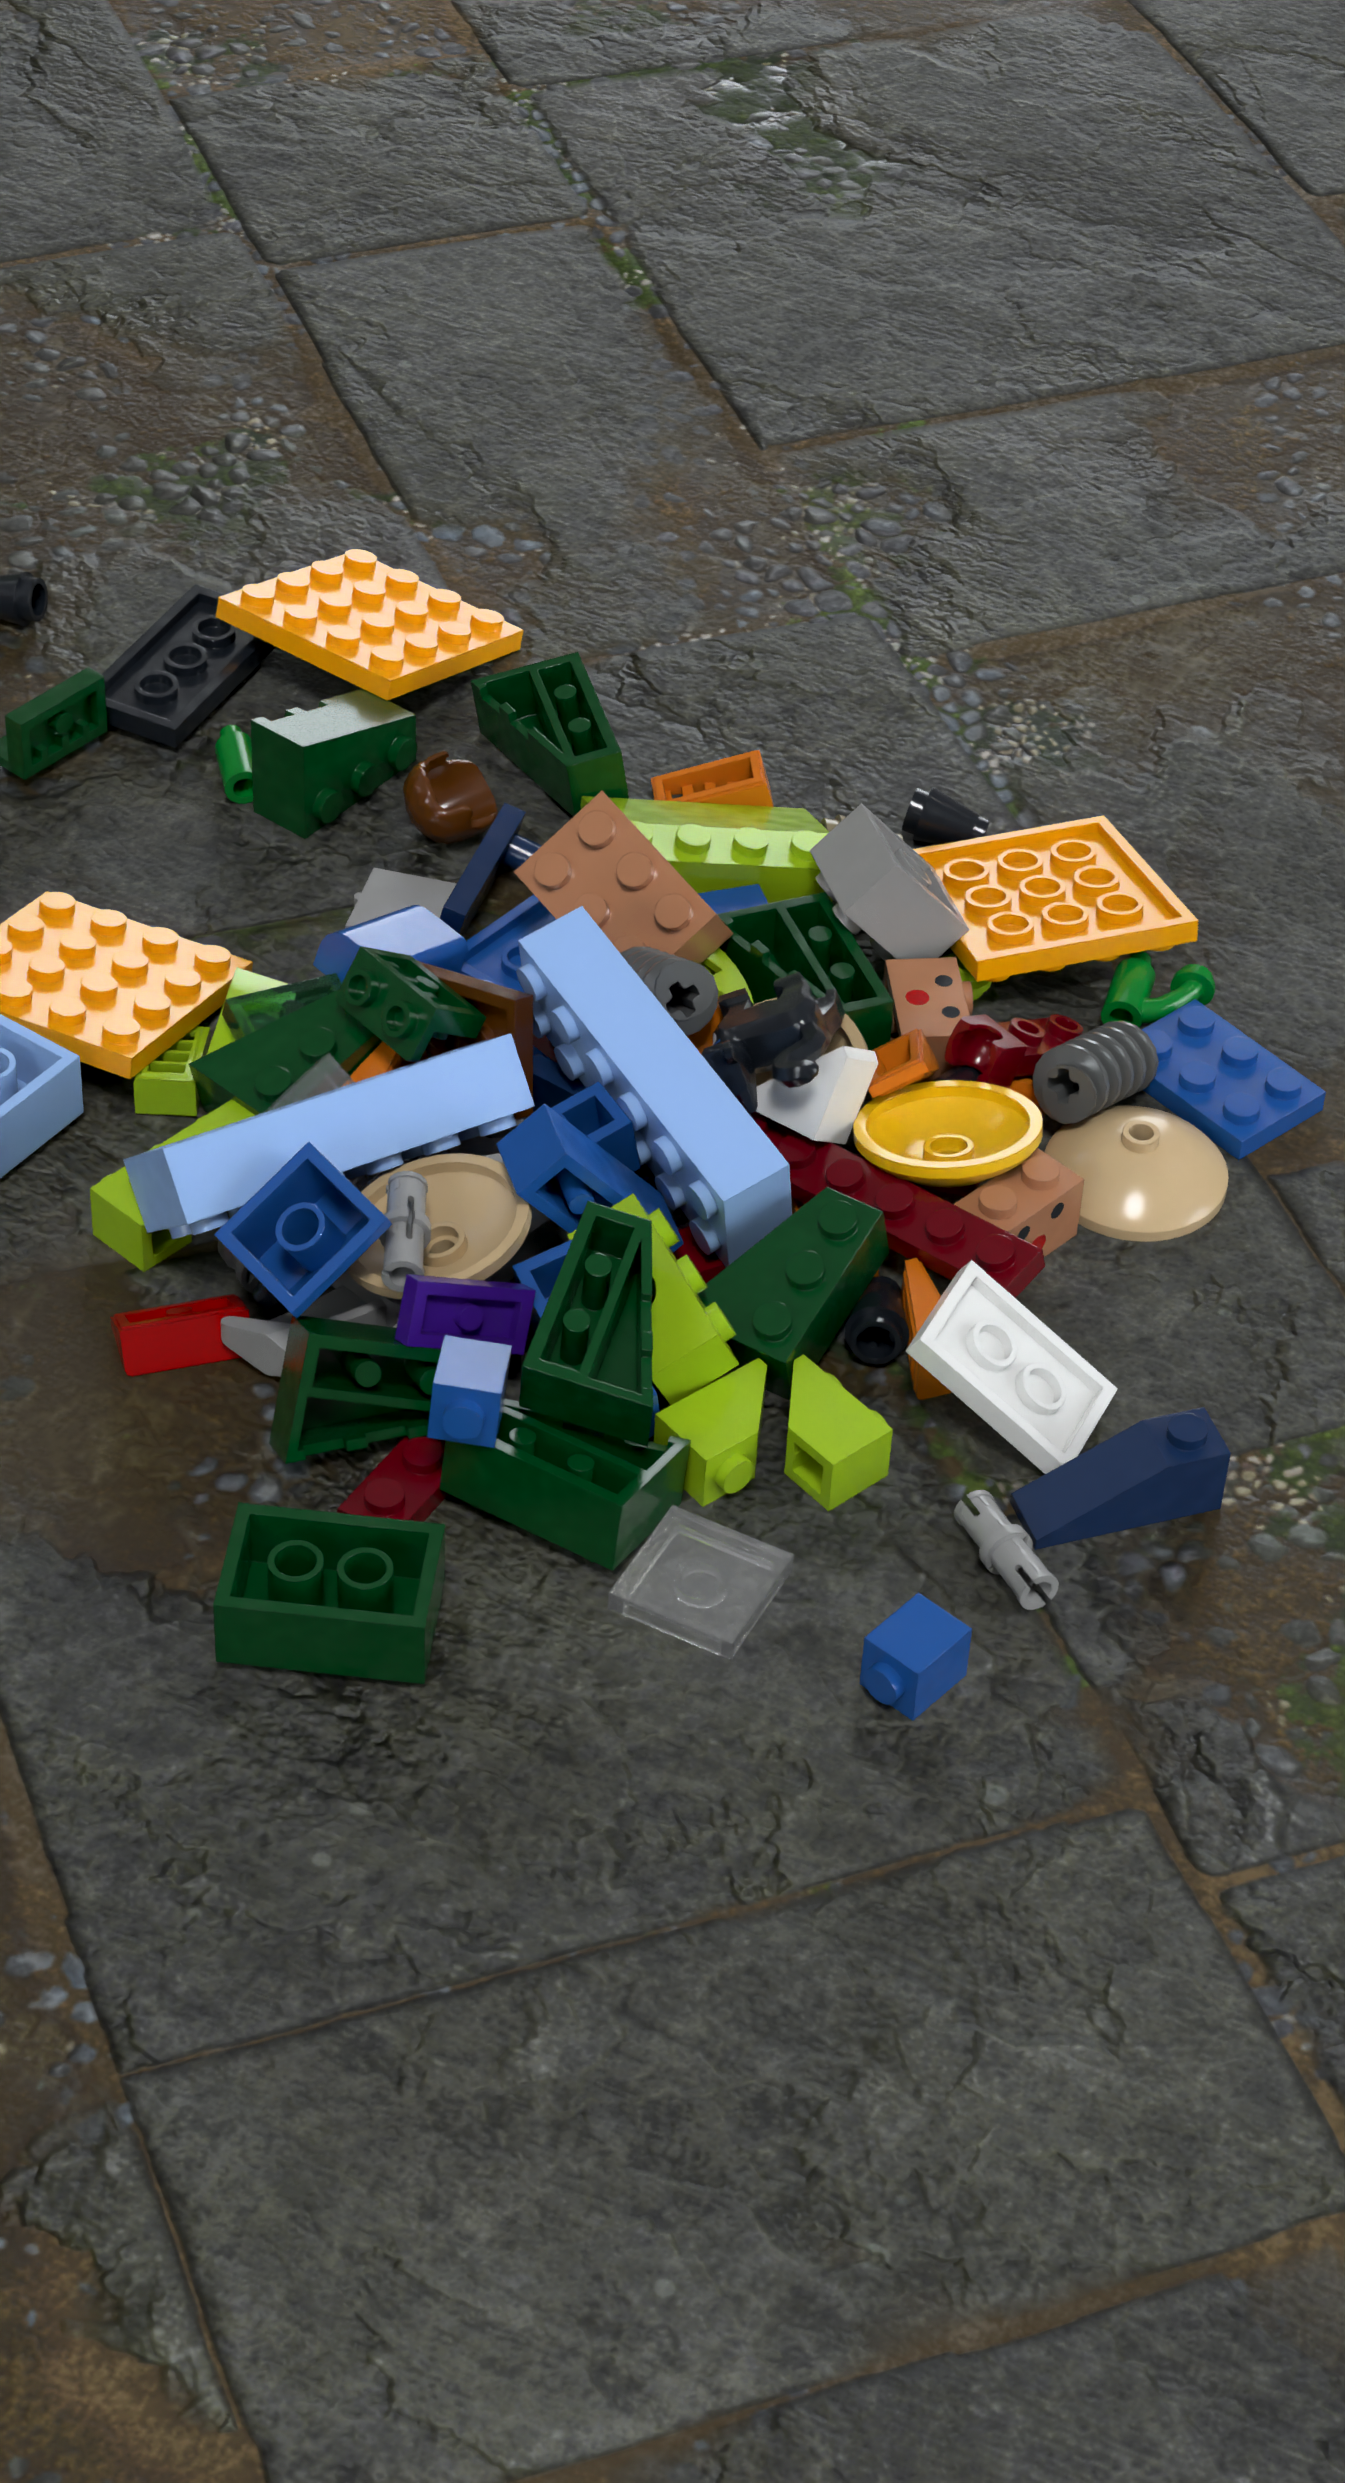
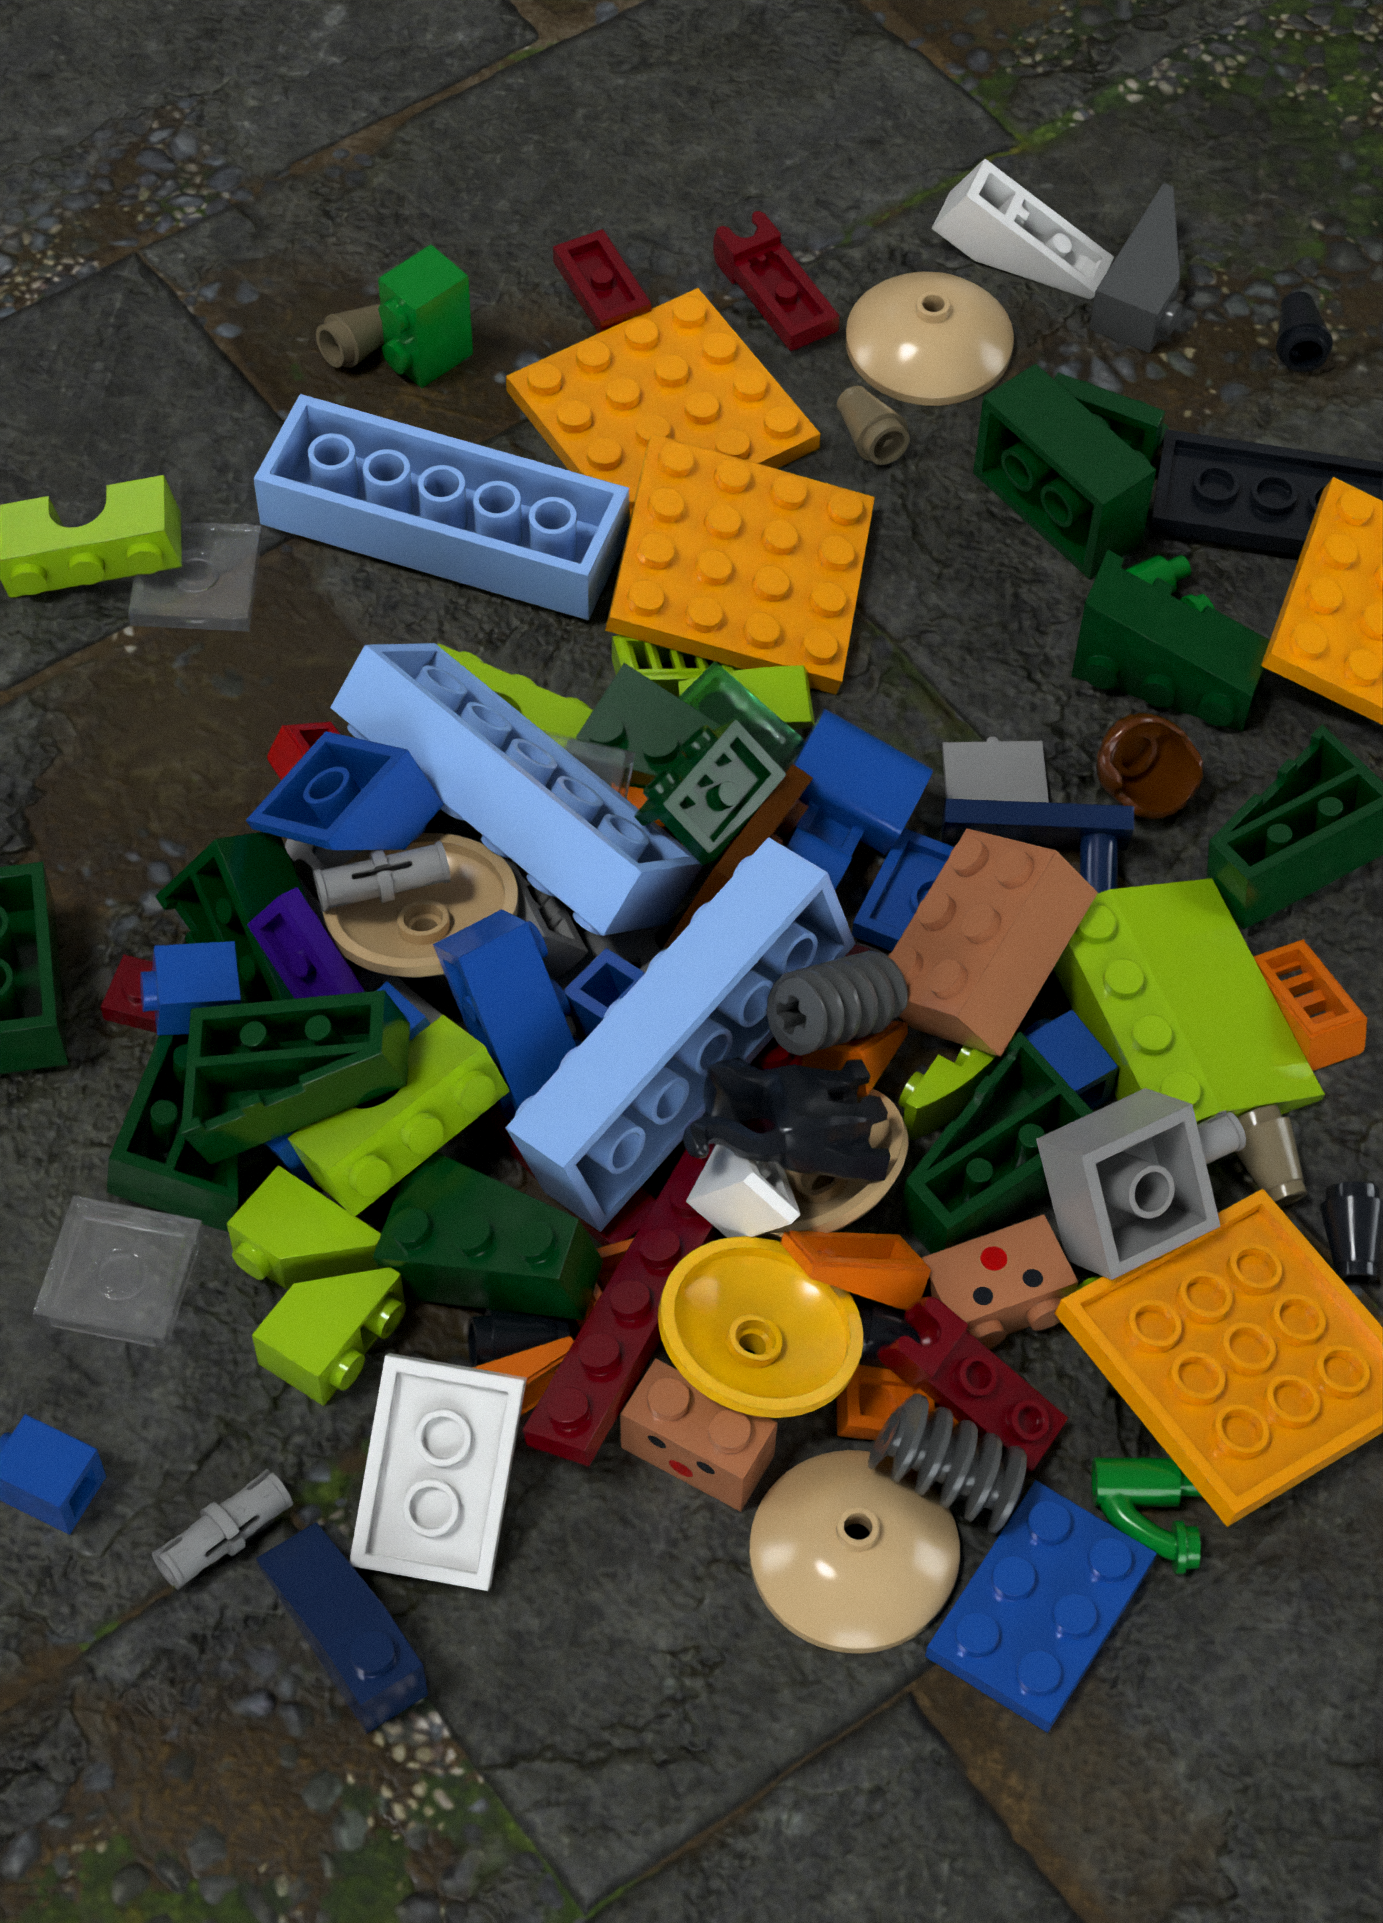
camera: 75 degrees right, 15 degrees up
(107, 753) = (1063, 469): none -> dark green brick

